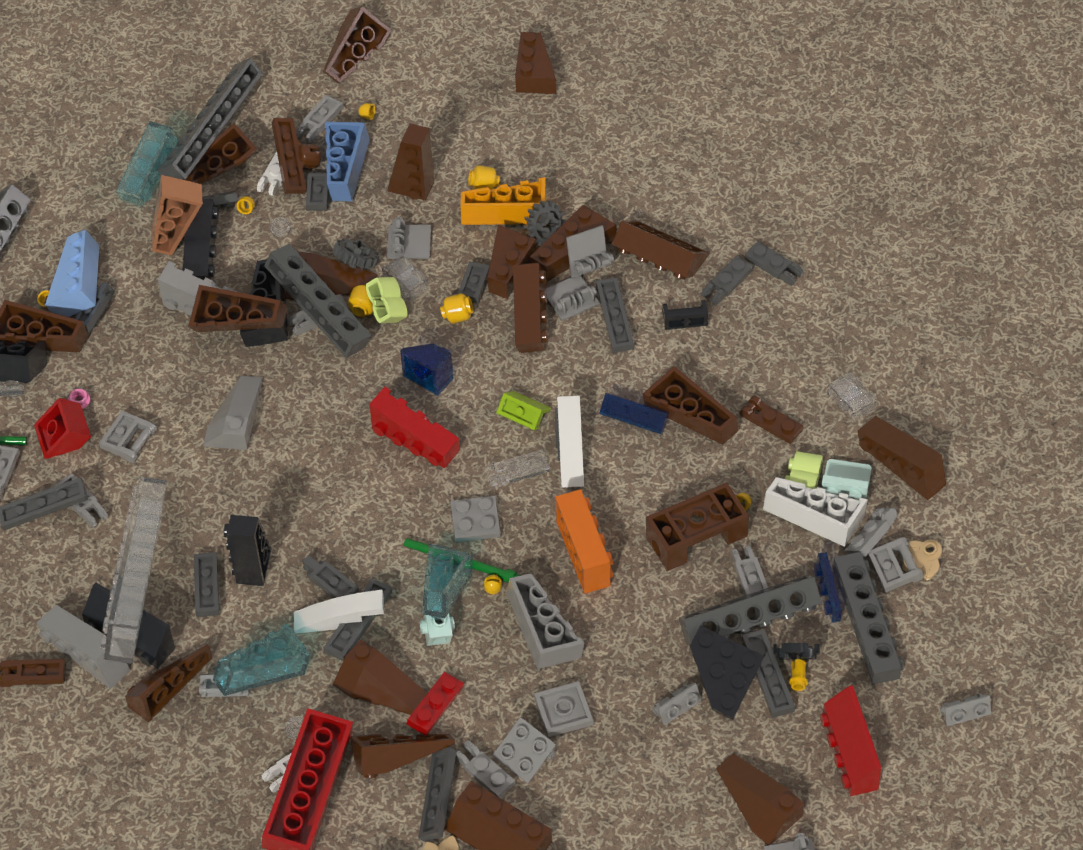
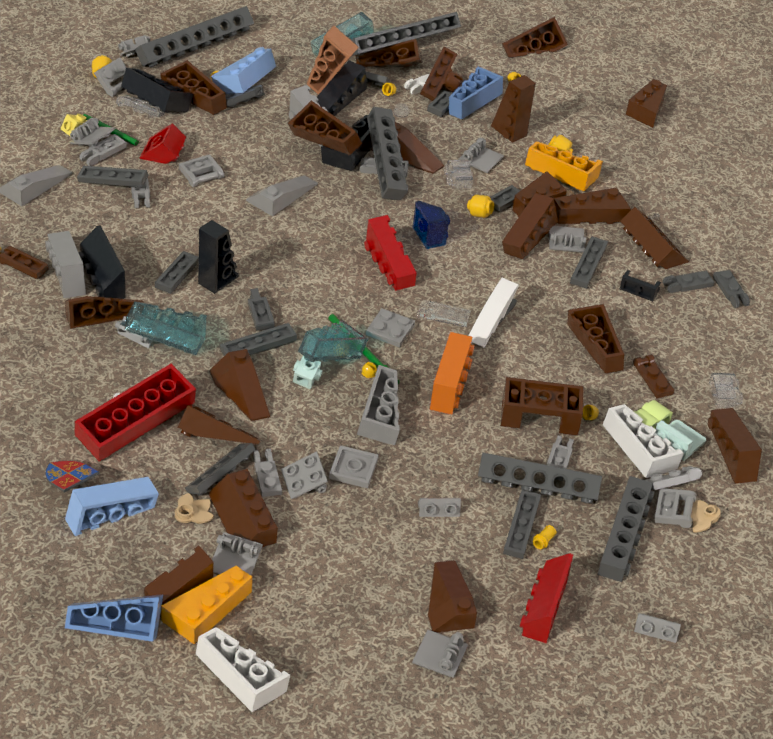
camera: 25 degrees right, 10 degrees down
(80, 394) = (191, 136): bright pink plate -> none
(133, 570) = (127, 227): clear brick -> none
(323, 112) = (470, 67): light grey hinge -> none
(339, 610) = (249, 328): white slope -> none
(356, 253) = (437, 144): dark grey gear -> none
(359, 302) = (419, 171): yellow head -> none
(386, 300) = (435, 176): yellowish green brick -> none
(435, 704) = (266, 415): red plate -> none
(522, 409) = (476, 282): lime panel -> none
(543, 221) = (583, 179): dark grey gear -> none
(588, 251) = (597, 214): light grey hinge -> none
(634, 413) = (554, 322): clear blue plate -> none
(724, 670) = (489, 502): black plate -> none
(789, 650) = (551, 515): black plate -> none
(827, 587) = (610, 494): clear blue plate -> none

